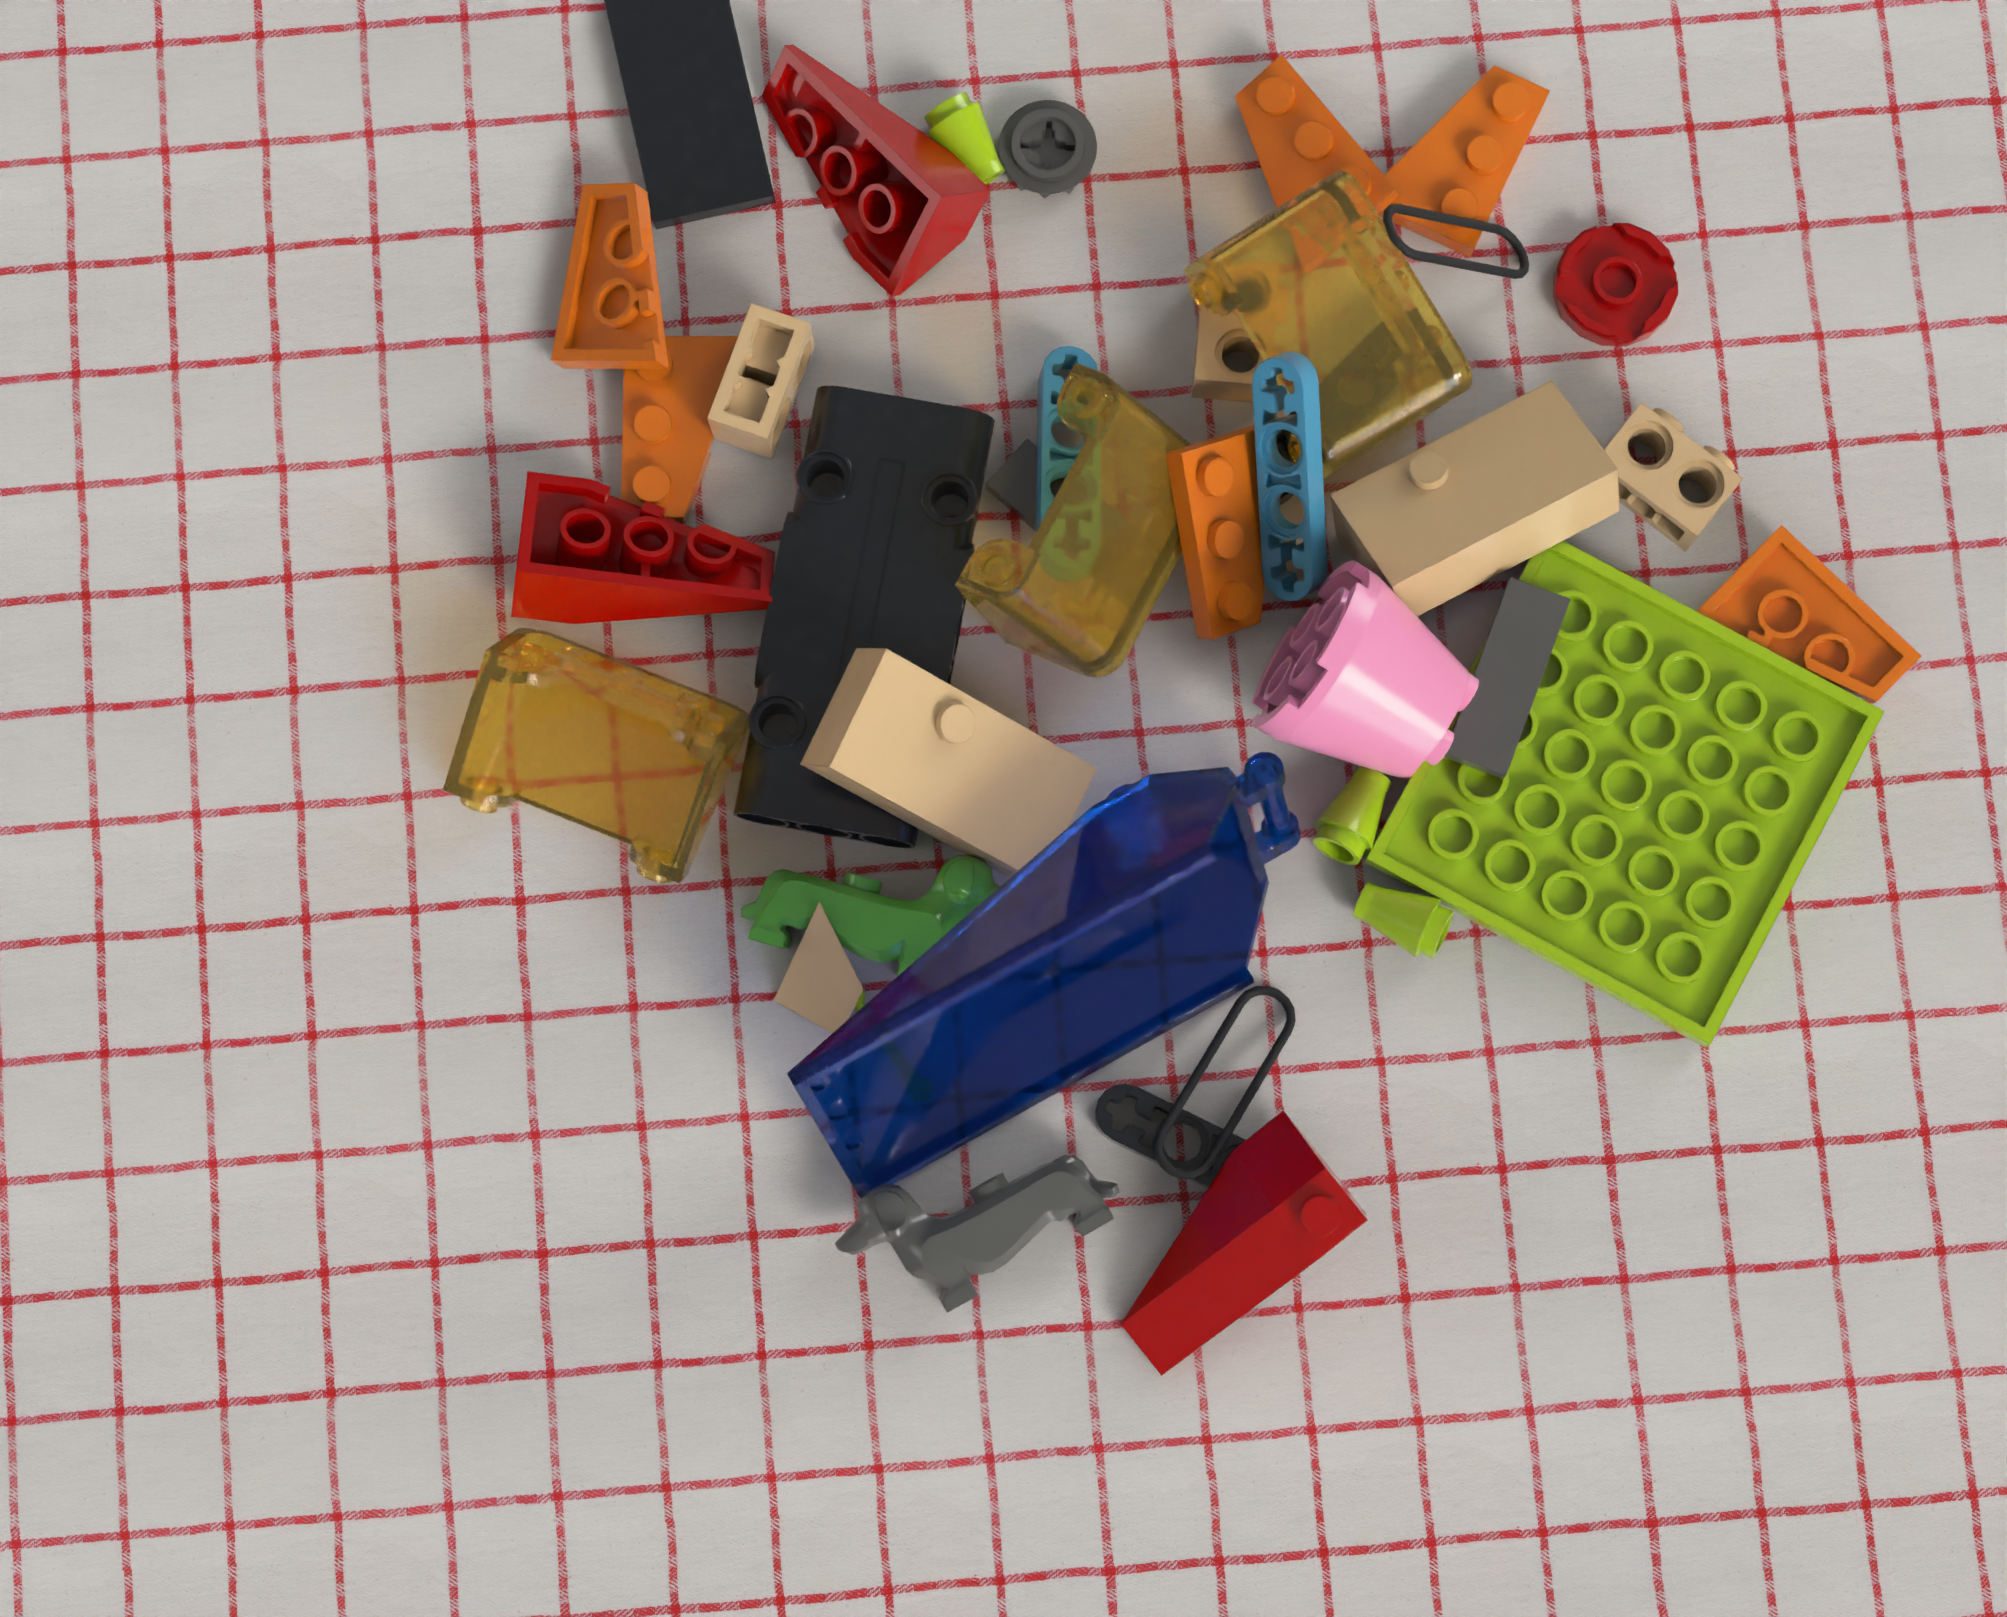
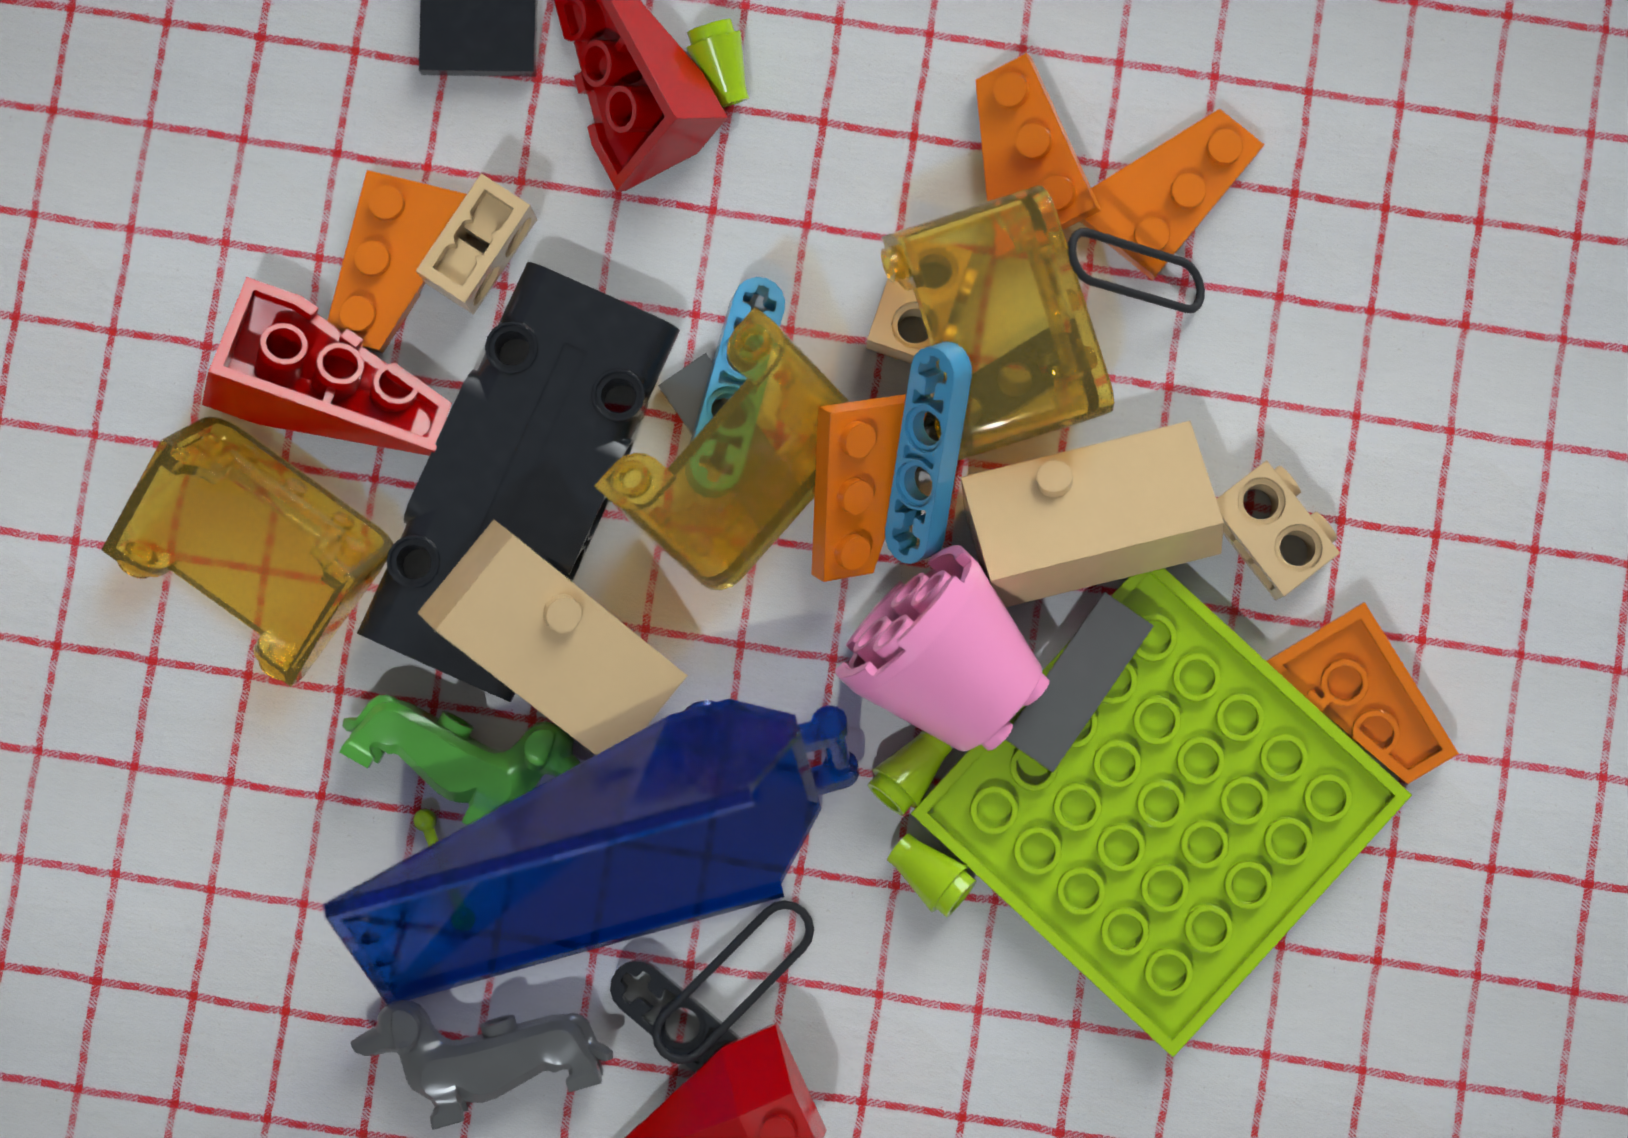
camera: 15 degrees right, 5 degrees up
(611, 285) = (365, 120): orange wing -> none
(820, 977) = (398, 800): tan sticker -> none
(1026, 131) = (779, 64): dark grey gear -> none
(1615, 284) = (1277, 339): red tile -> none

